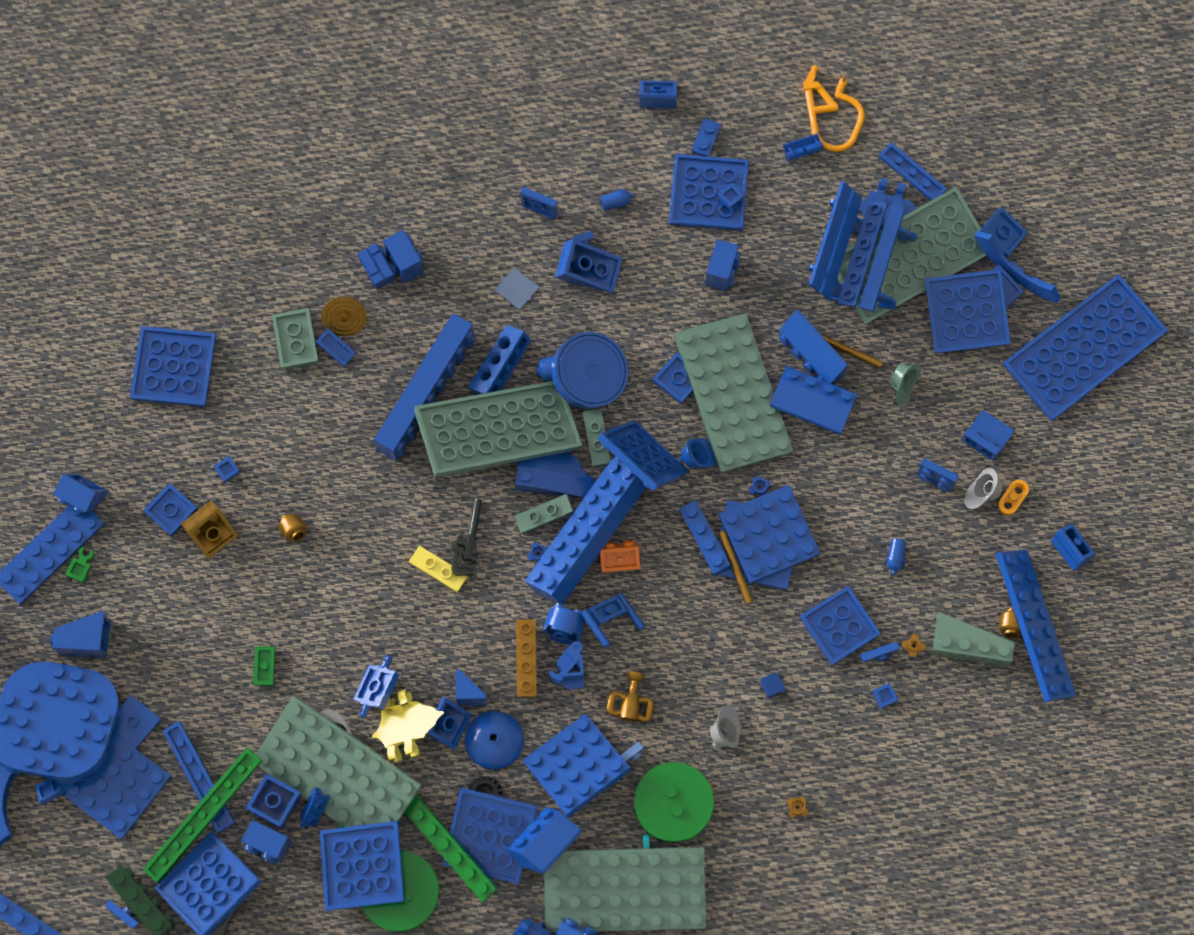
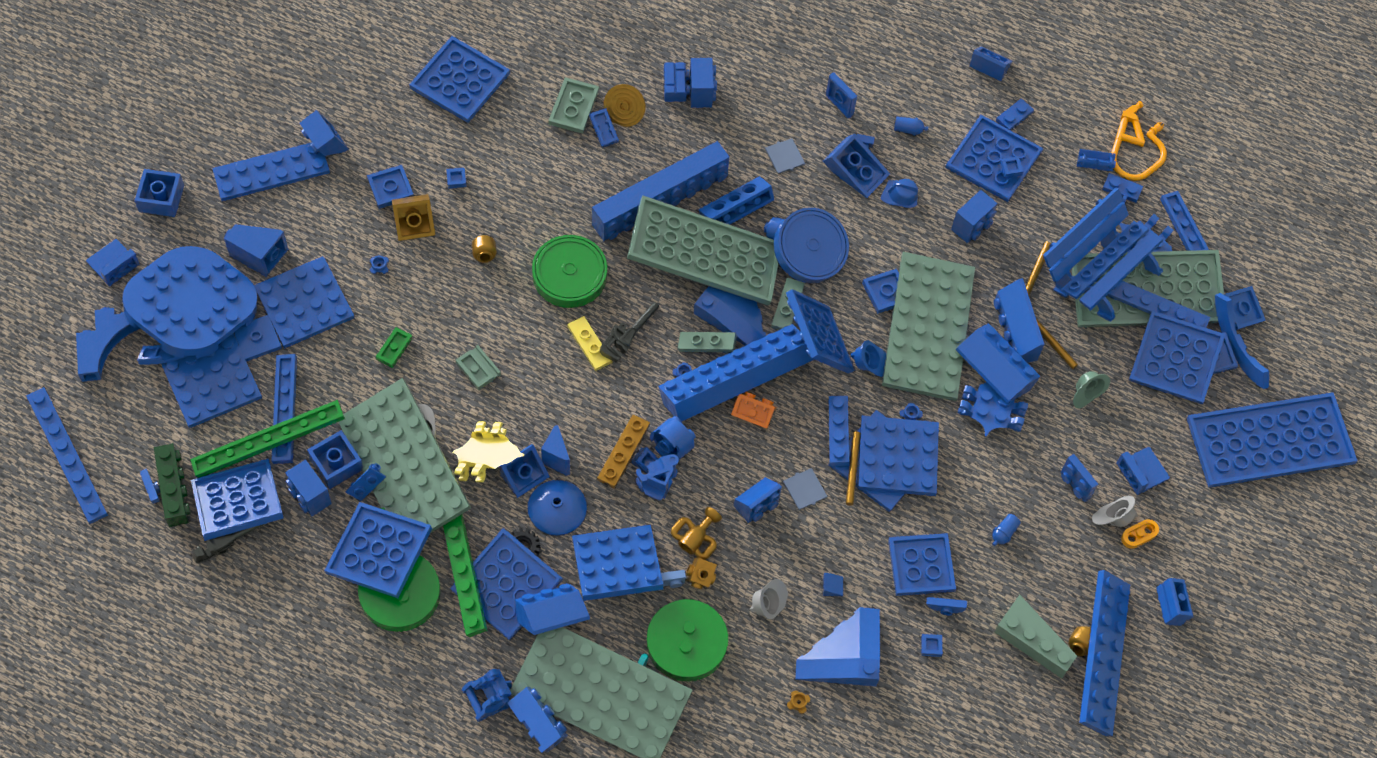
camera: 20 degrees right, 10 degrees down
(79, 568) = (288, 195): green plate -> none
(155, 664) = (304, 302): none -> blue plate
(206, 586) = (379, 260): none -> blue plate
(351, 645) = (478, 367): none -> sand green plate
(376, 686) = (479, 409): plate -> none
(383, 509) = (569, 271): none -> green brick
(548, 654) = (643, 458): none -> blue slope
(608, 611) = (717, 447): blue plate -> none
(641, 273) = (900, 193): none -> blue piece
(654, 736) = (701, 566): none -> pearl gold brick
(667, 641) = (758, 499): none -> blue slope
(702, 607) = (805, 489): none -> sand blue piece
(801, 285) = (1037, 268): none -> pearl gold bar
(816, 741) = (847, 654): none -> slope
(828, 447) = (992, 409): none -> blue animal
(839, 163) = (1128, 189): none -> blue hinge
(913, 650) = (977, 620): pearl gold plate -> none
(924, 269) = (1151, 302): none -> blue plate

